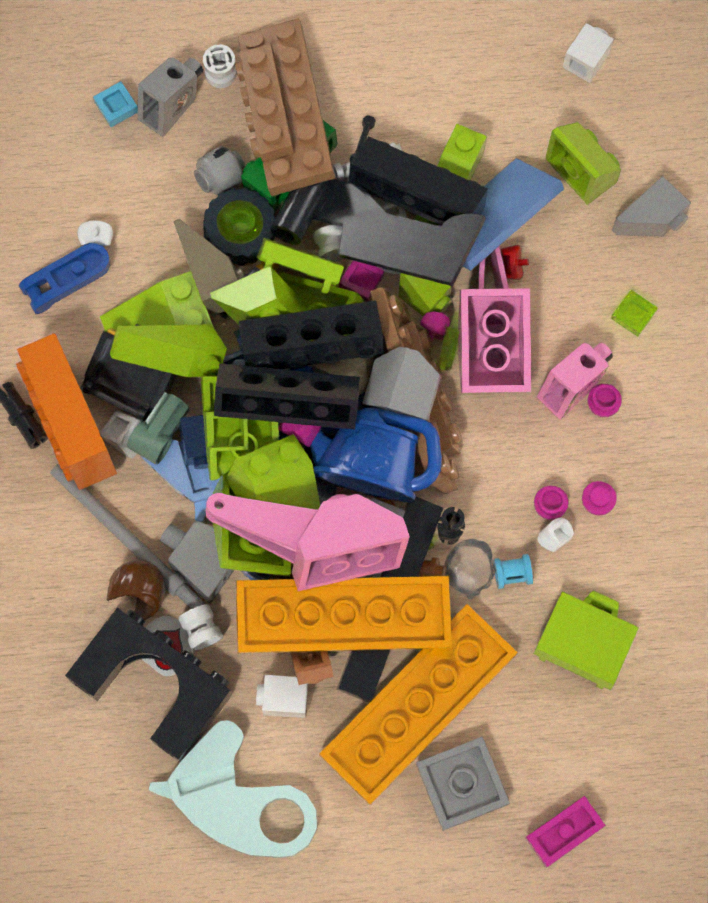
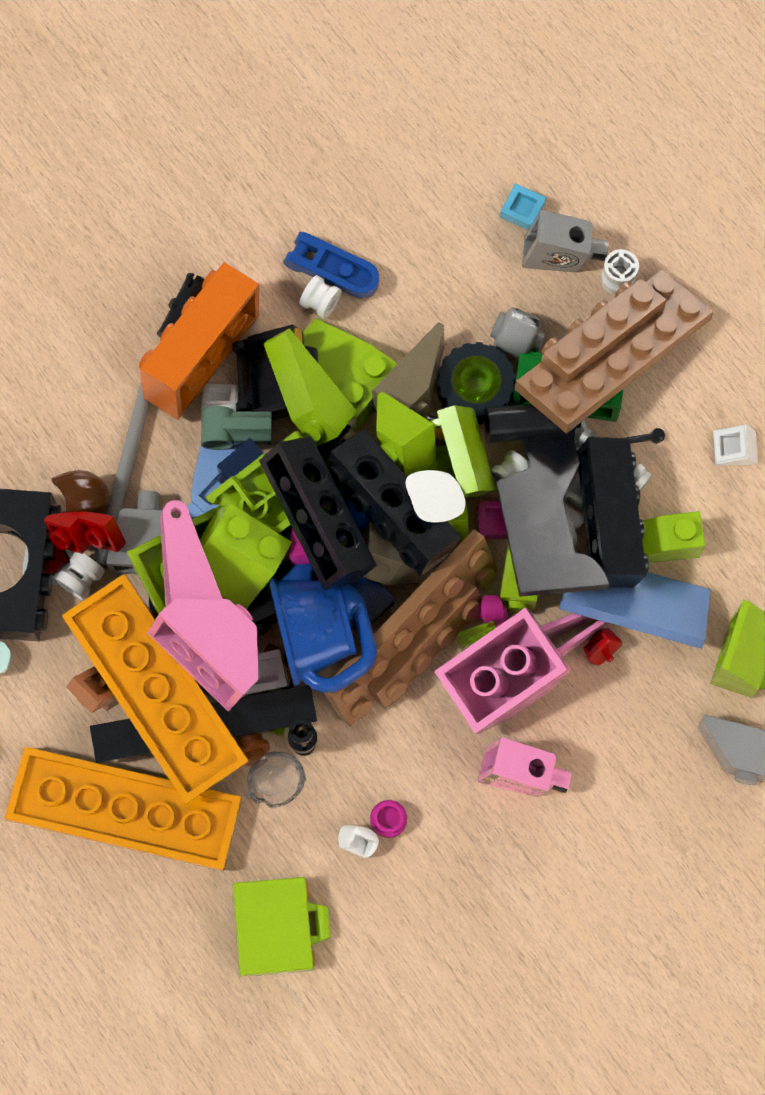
camera: 60 degrees right, 0 degrees up
(87, 300) = (320, 297): none -> white wheel
(95, 232) = (388, 265): white piece -> none
(166, 601) = (82, 529): none -> red slope
(282, 696) = (52, 678): white brick -> none
(329, 300) = (435, 495): none -> white sticker
(402, 383) = (399, 610): light grey slope -> none
(413, 72) = (735, 446): none -> white slope
(462, 783) = (72, 891): light grey plate -> none
(513, 571) = (299, 821): medium azure bush -> none
(565, 831) = (81, 1011): dark pink plate -> none
(599, 498) = (420, 861): dark pink plate -> none
(604, 400) = (520, 811): dark pink plate -> none
(634, 313) = (627, 789): clear neon green tile -> none

